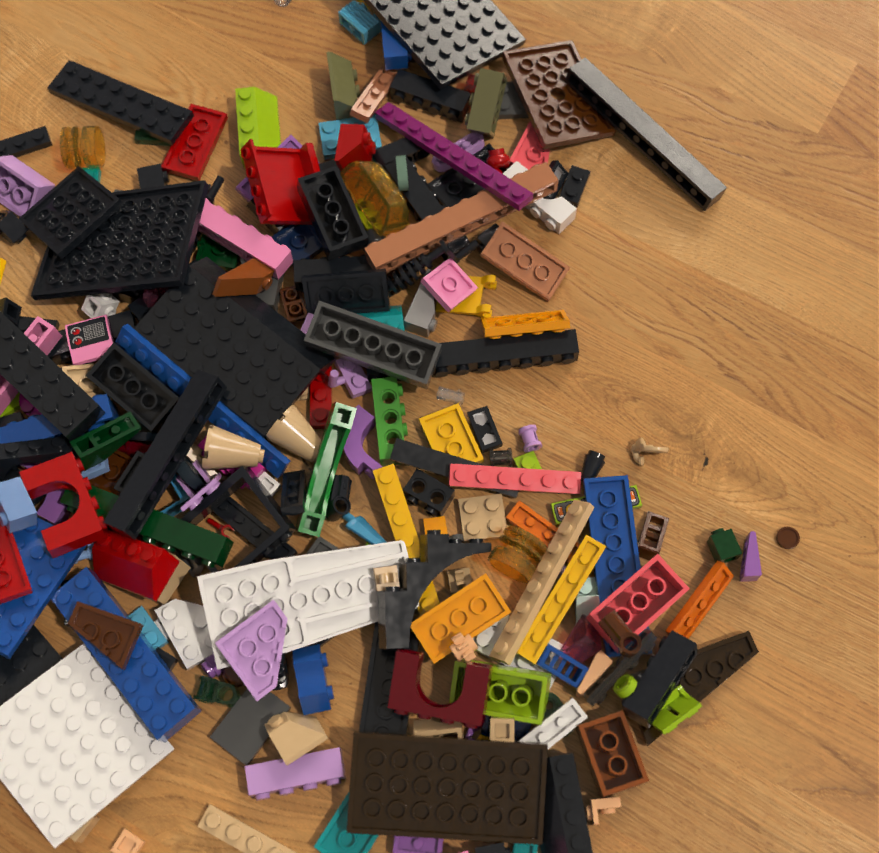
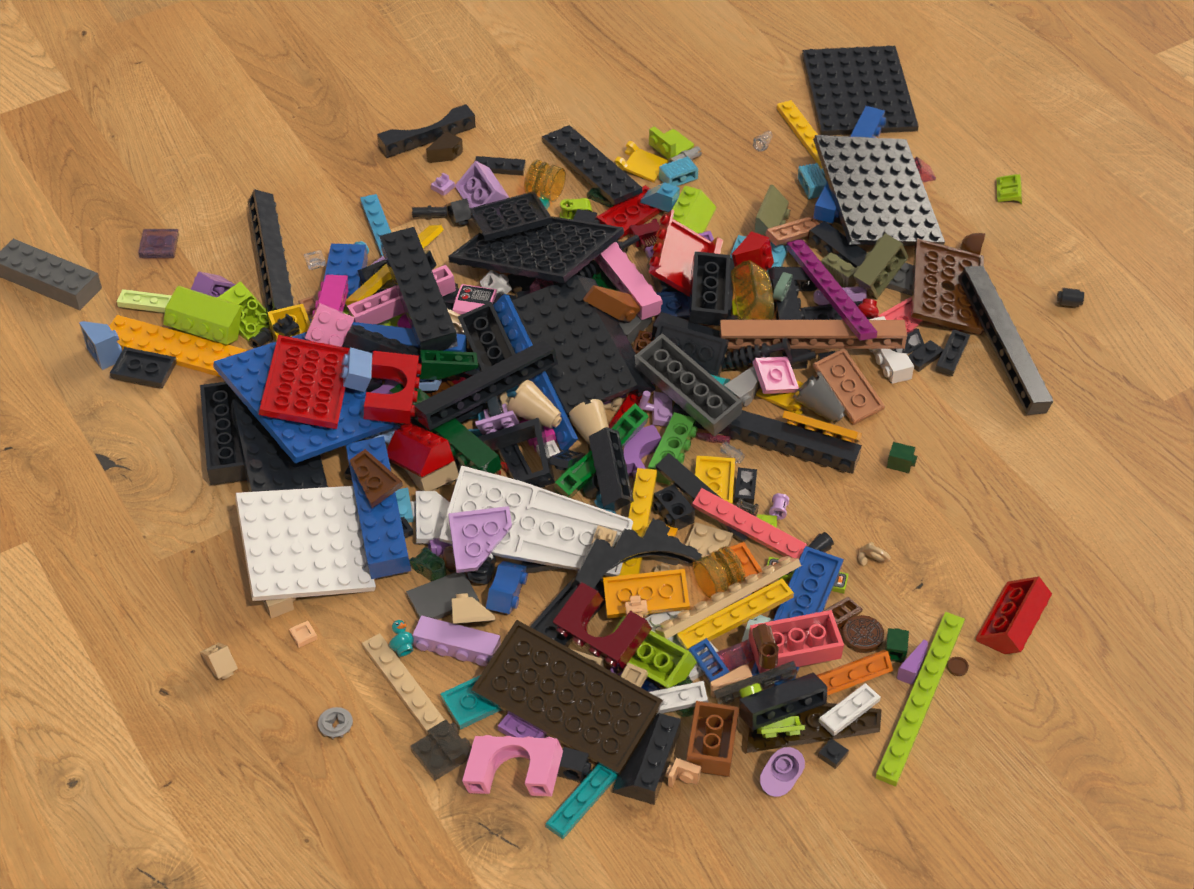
camera: 25 degrees right, 20 degrees down
(130, 164) = (573, 205): none -> lime piece
(171, 75) = (641, 162): none -> yellow flag
(188, 37) = (669, 143): none -> lime bracket
(212, 47) = (692, 153): none -> light grey pin
(216, 71) = (678, 172): none -> medium azure brick
(218, 113) = (662, 196): none -> dark azure slope
(227, 165) = (646, 233): none -> dark red piece
(238, 805) = (403, 640): none -> teal animal
(348, 488) = (611, 469): none -> black brick
(412, 388) = (709, 437): none -> clear pink piece
(445, 123) = (840, 270): none -> olive brick
(505, 291) = (820, 398): none -> dark grey cone
(555, 30) = (973, 243): none -> reddish brown helmet
(600, 170) = (952, 352): none -> black plate
(617, 321) = (901, 457): none -> dark green brick
(677, 53) = (1070, 297): none -> black brick
(684, 547) = (863, 634): none -> reddish brown tile
(695, 754) = (782, 771): none -> lavender piece
(721, 649) = (849, 709): none -> white tile
(727, 702) = (833, 753): none -> black plate
(774, 596) = (920, 699): none -> lime plate
(812, 455) = (1014, 615): none -> red slope

